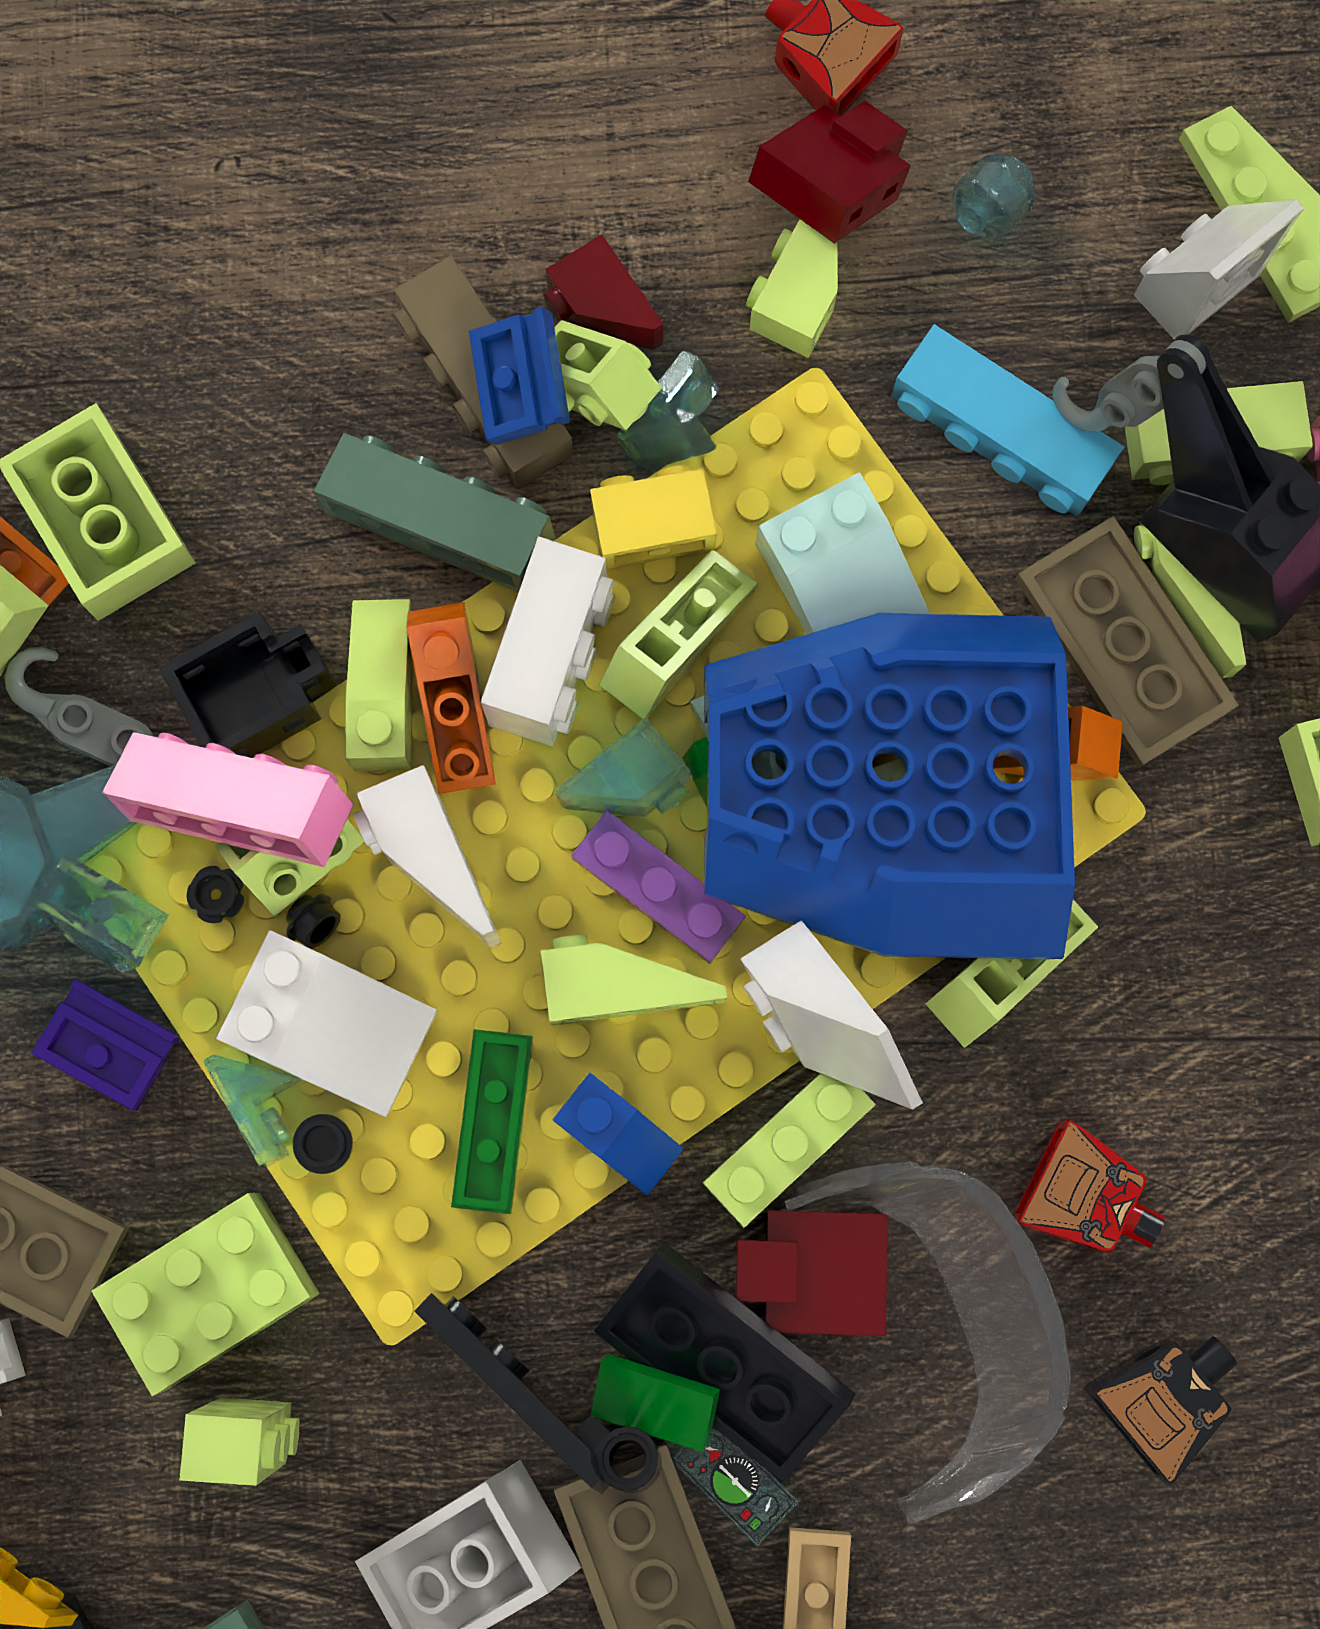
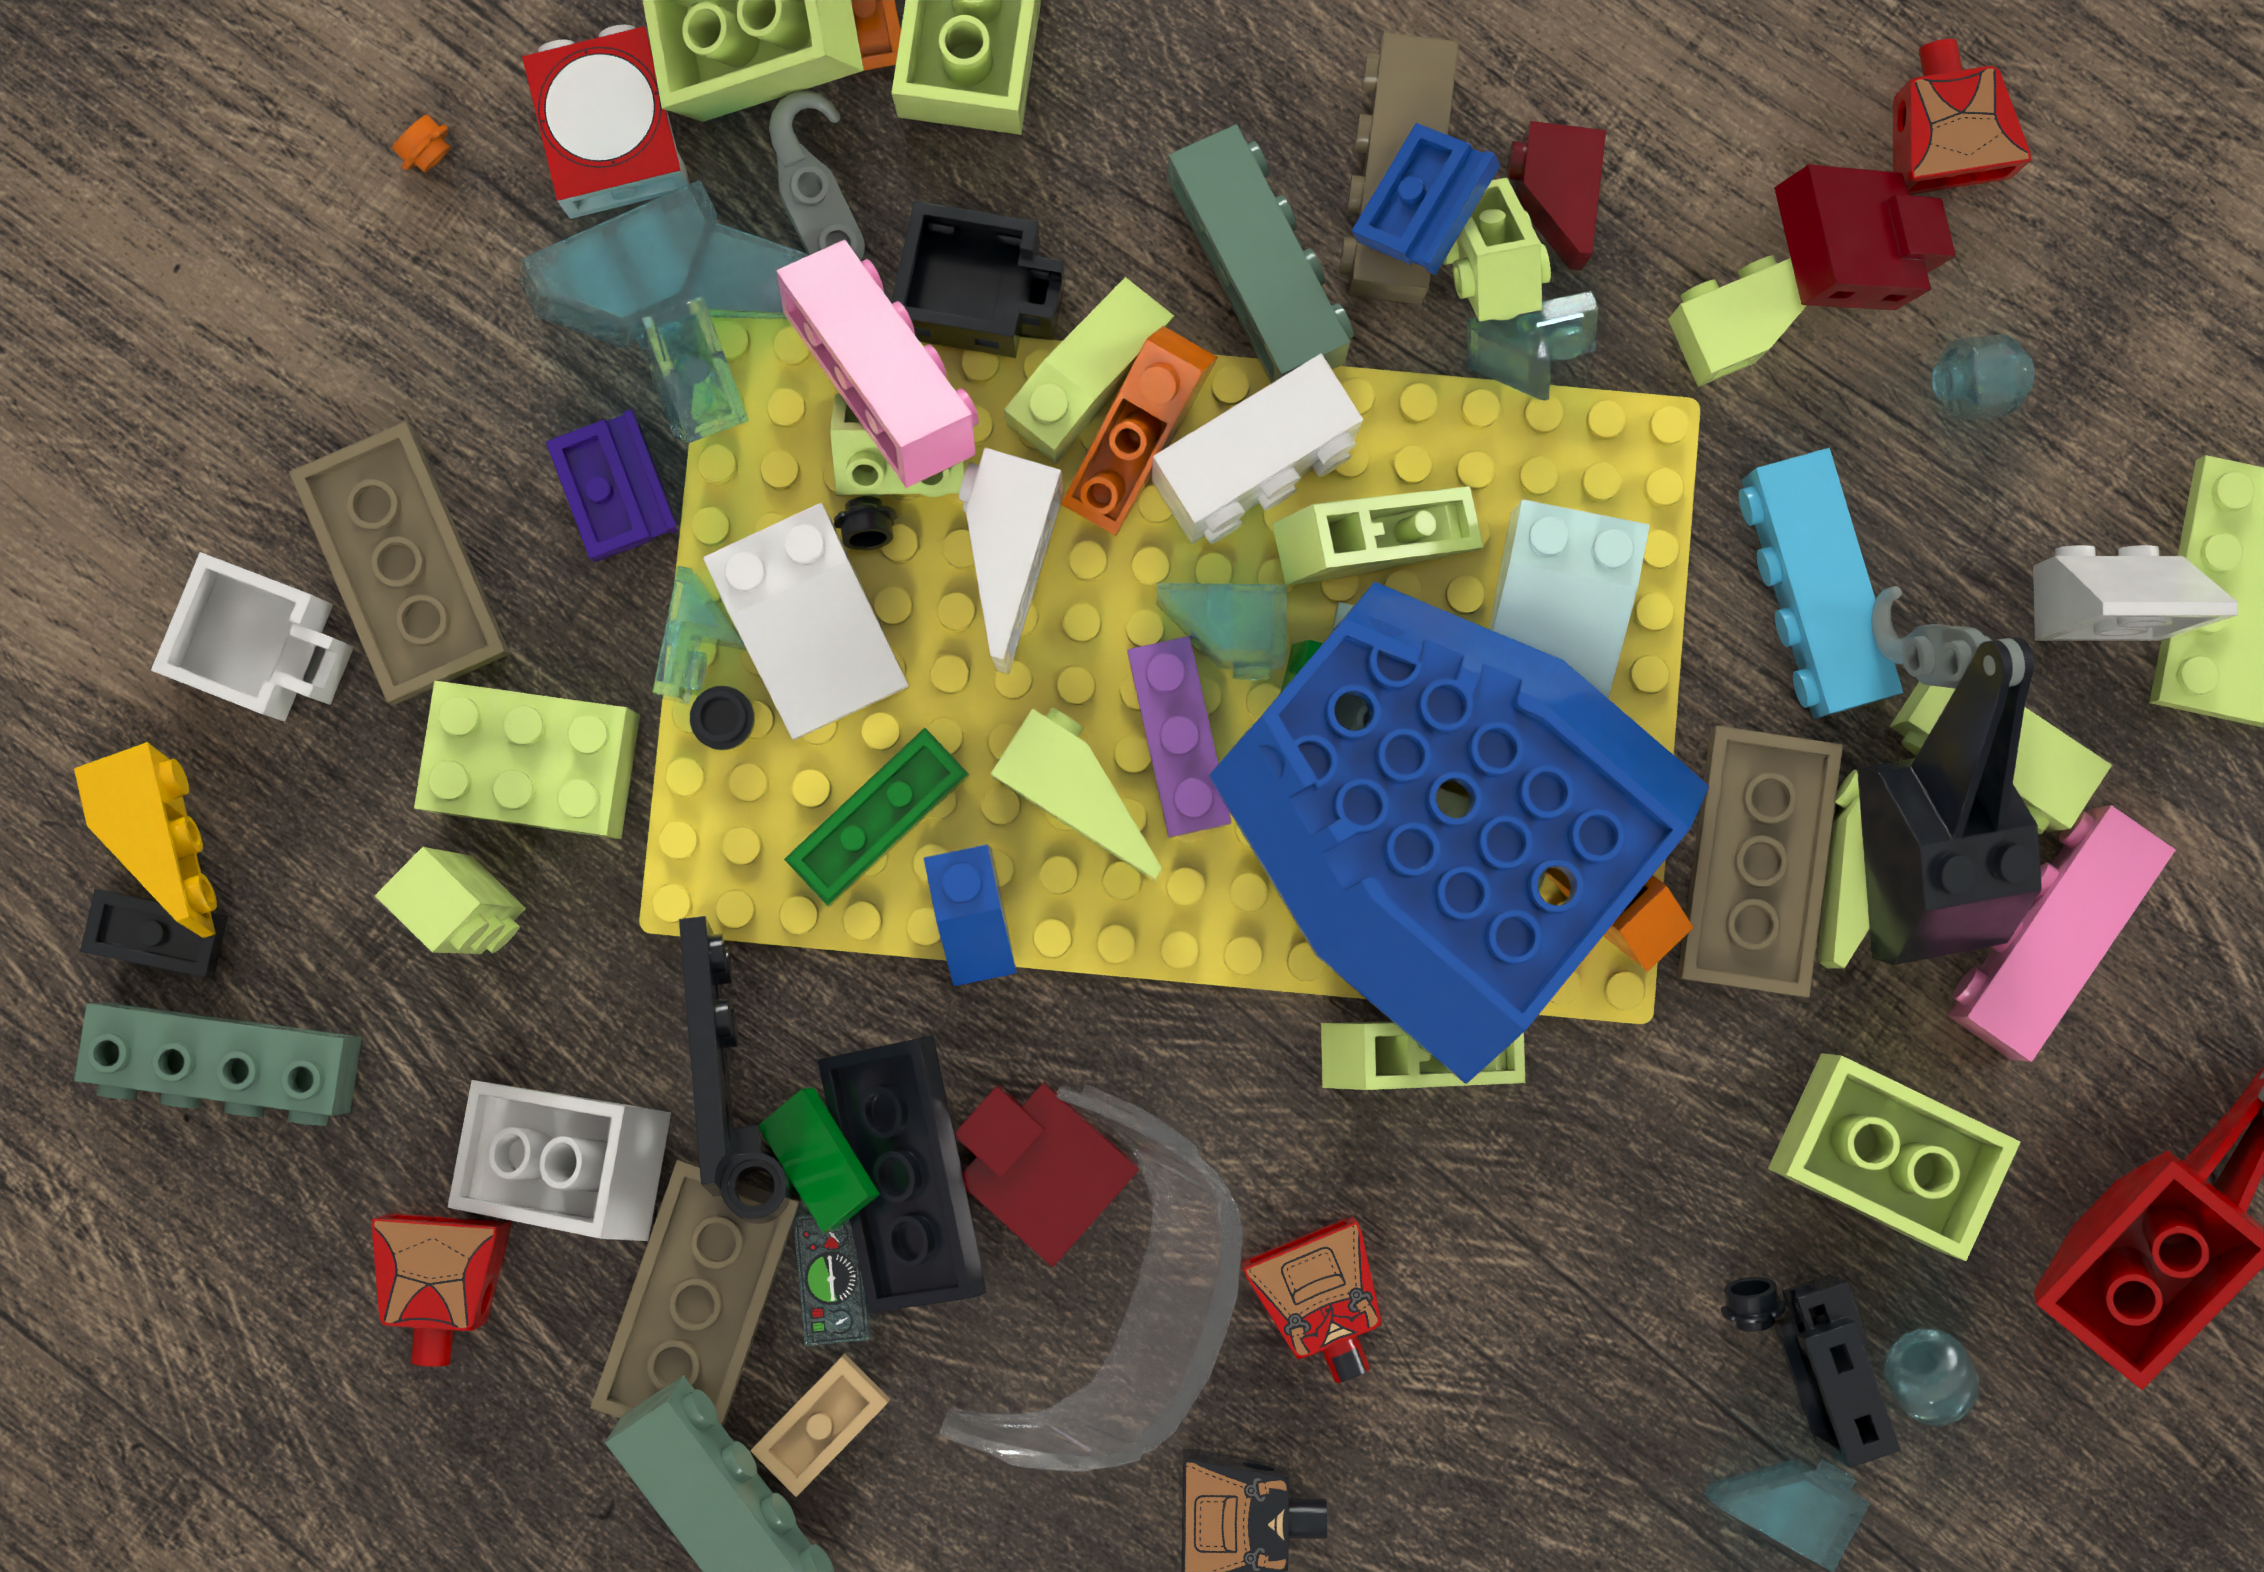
camera: 40 degrees right, 5 degrees up
(200, 892) = (789, 426): black plate -> none
(653, 516) = (1440, 415): light yellow brick -> none
(786, 1146) = (1105, 1042): yellowish green brick -> none
(824, 1016) = (1220, 960): white slope -> none

